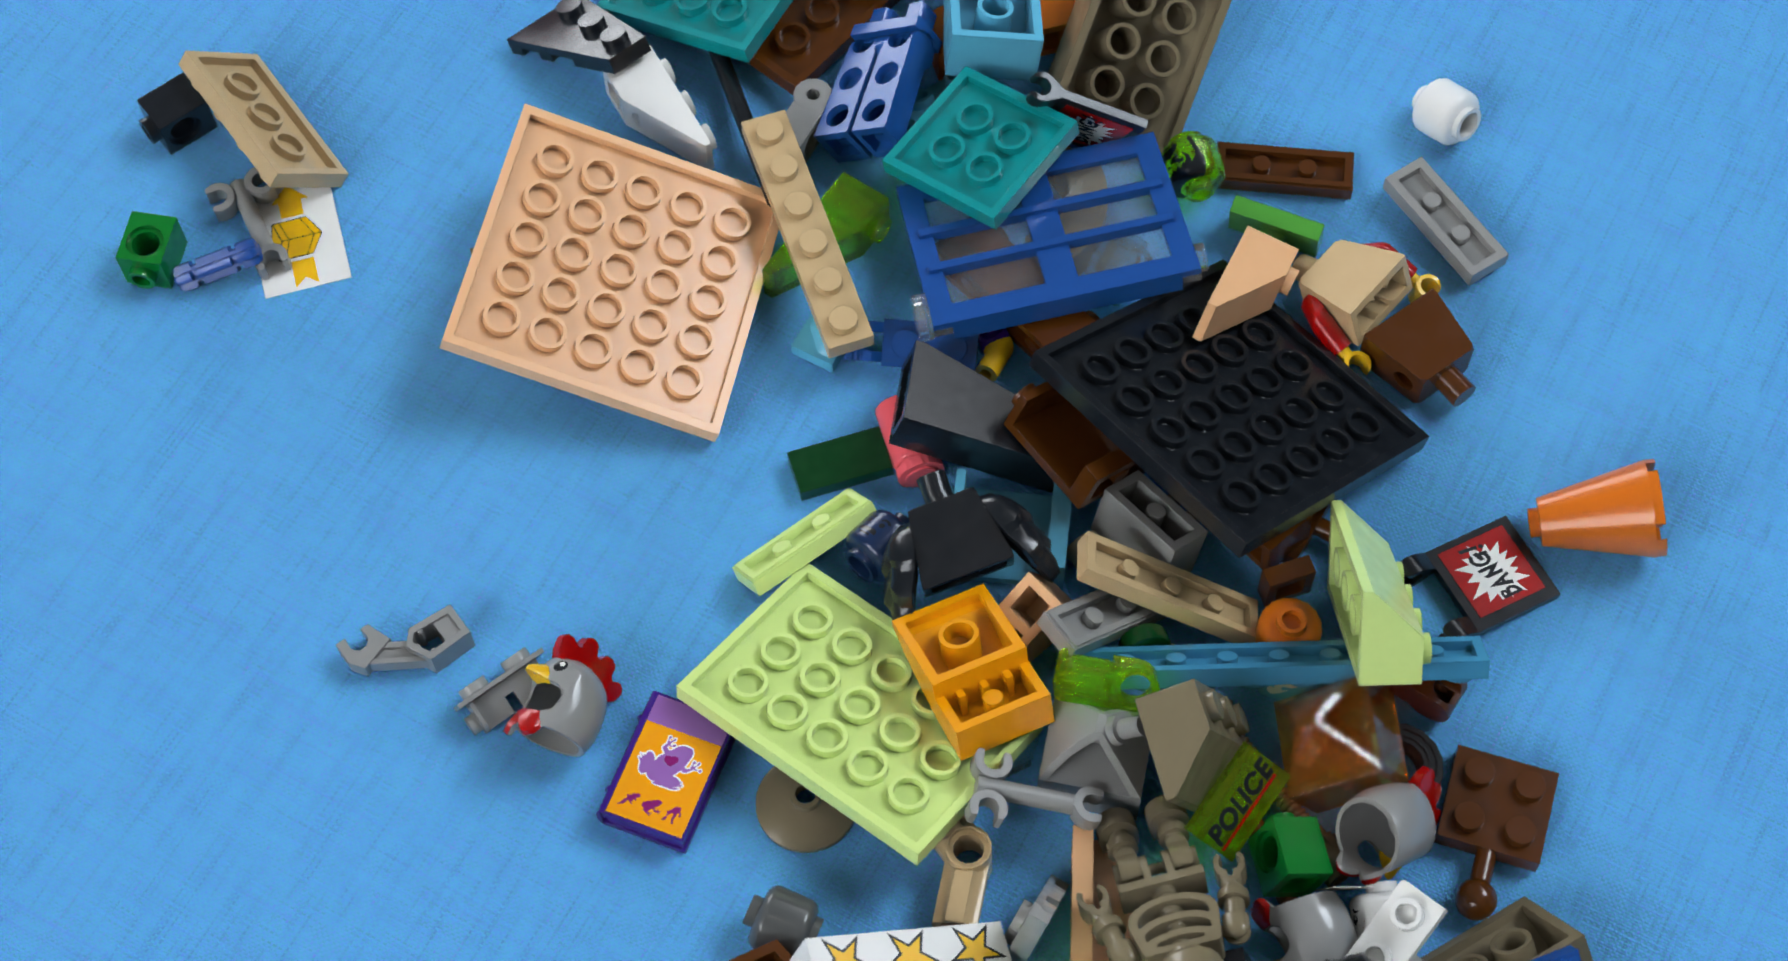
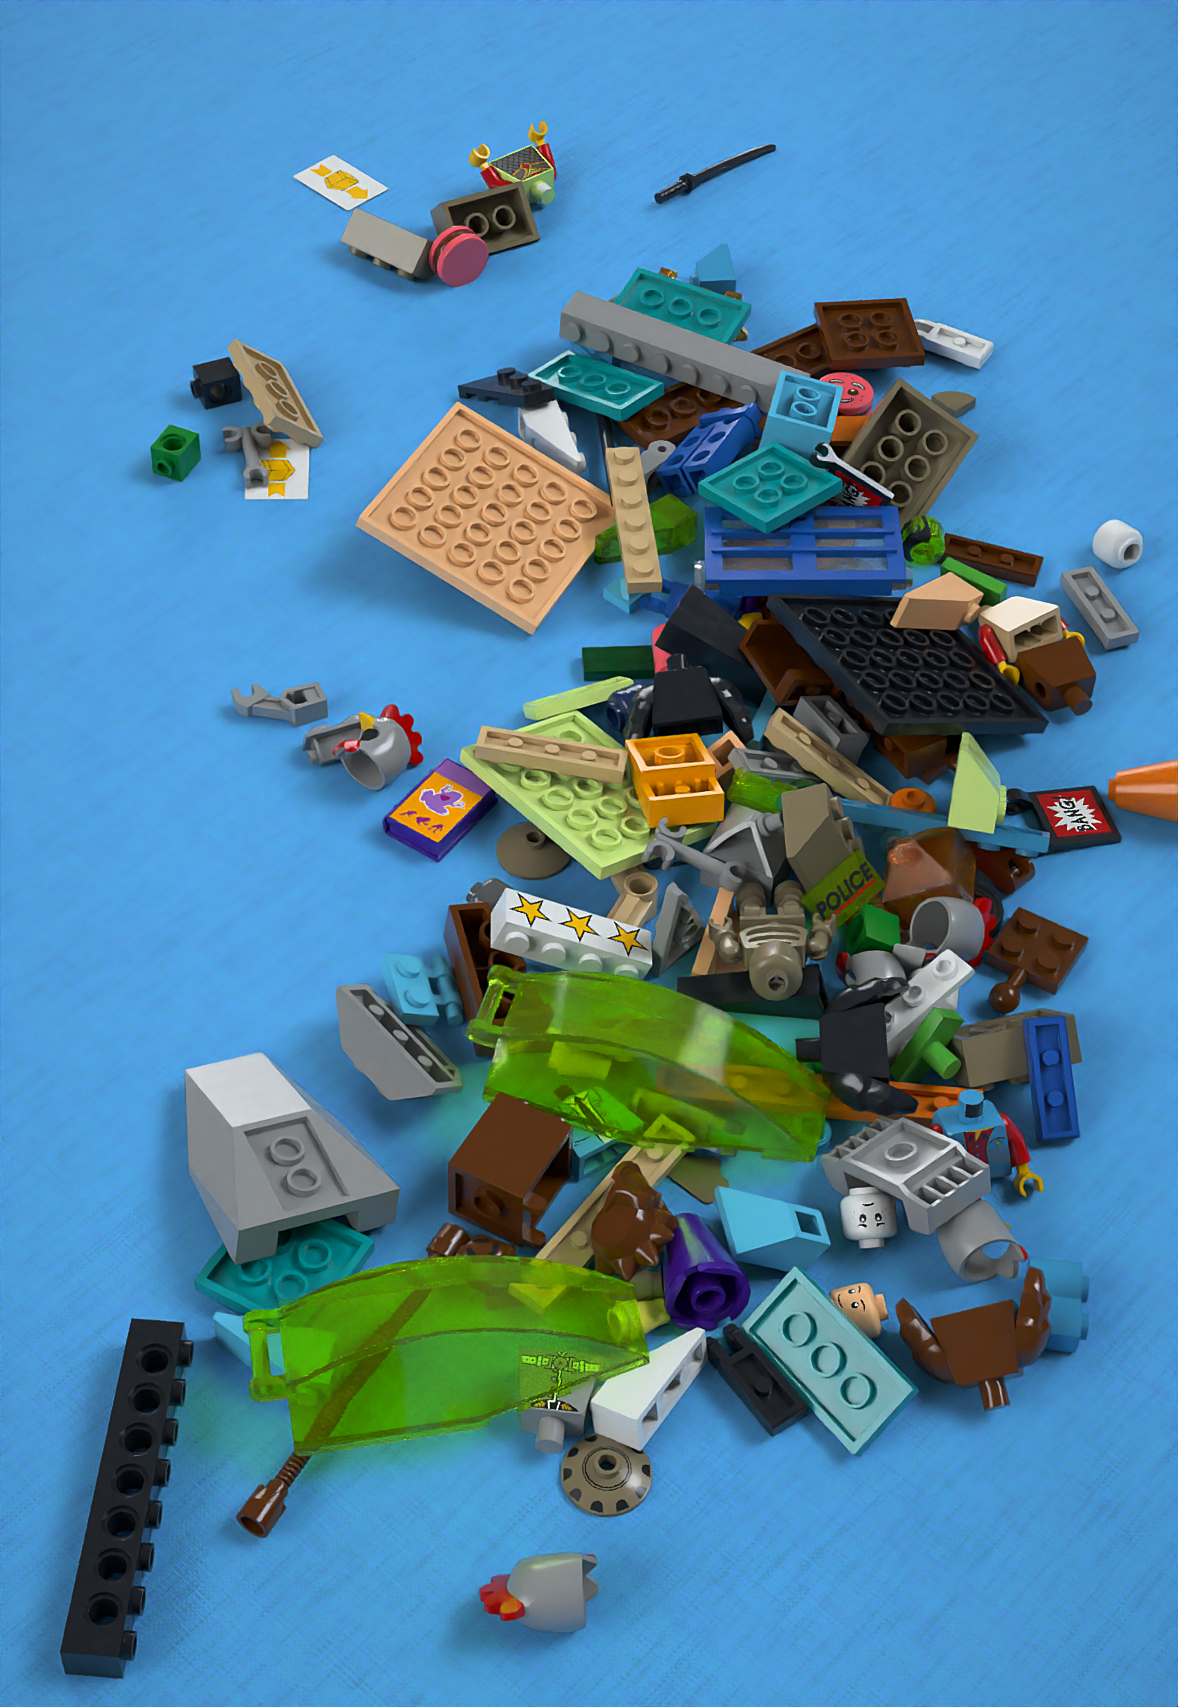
camera: 10 degrees right, 15 degrees down
(217, 264) = (218, 469): blue axle -> none
(800, 671) = (551, 754): none -> tan plate
(1286, 580) = (924, 779): reddish brown tile -> none

